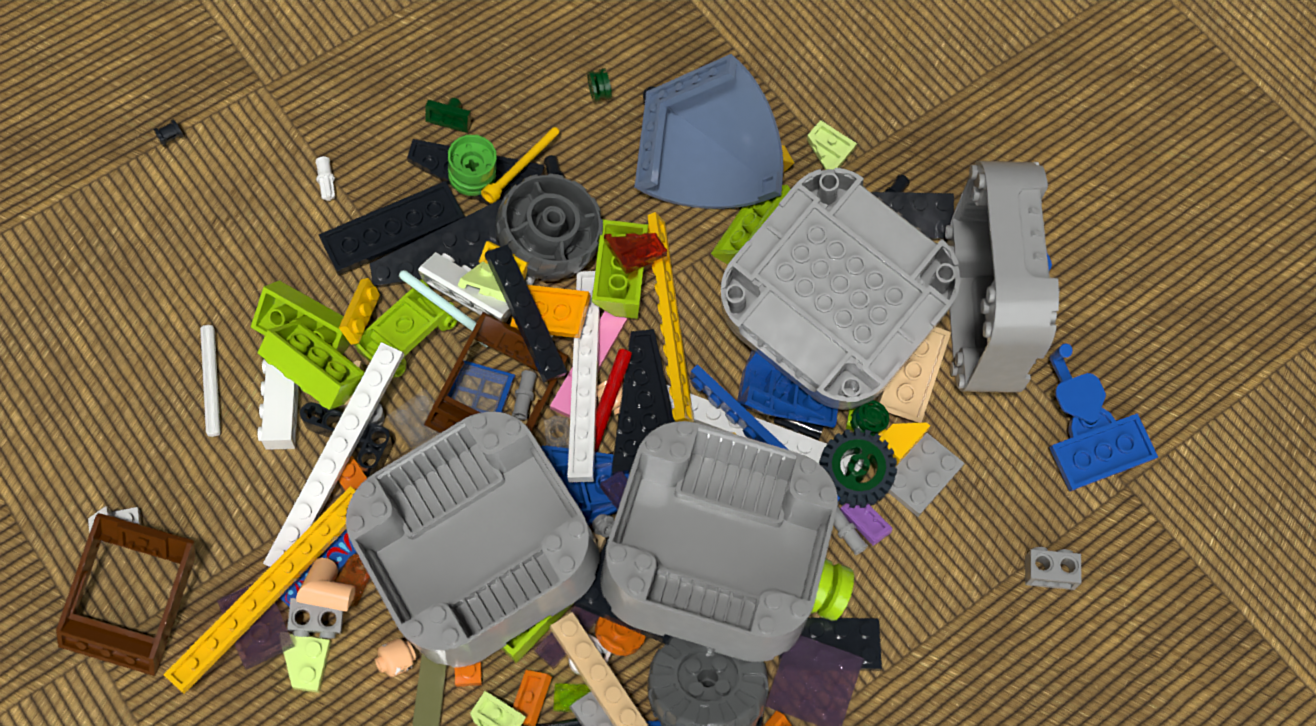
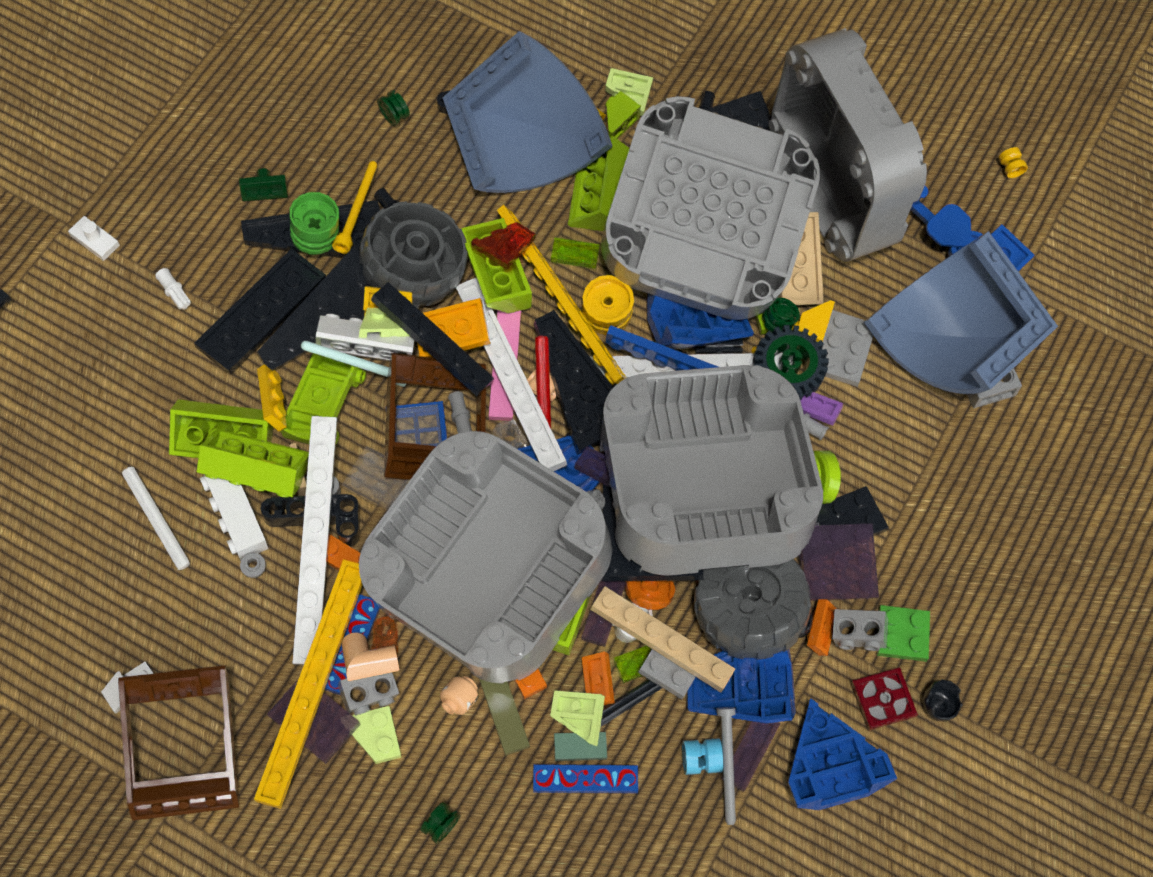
camera: 25 degrees left, 0 degrees up
(275, 464) = (257, 570): none -> light grey plate
(280, 107) = (93, 238): none -> white tile
(701, 282) = (575, 252): none -> clear neon green plate
(709, 343) = (607, 303): none -> yellow wheel
(806, 162) = (620, 114): none -> lime slope
(1049, 495) = (963, 320): none -> sand blue panel
(1179, 356) = (1013, 163): none -> yellow wheel

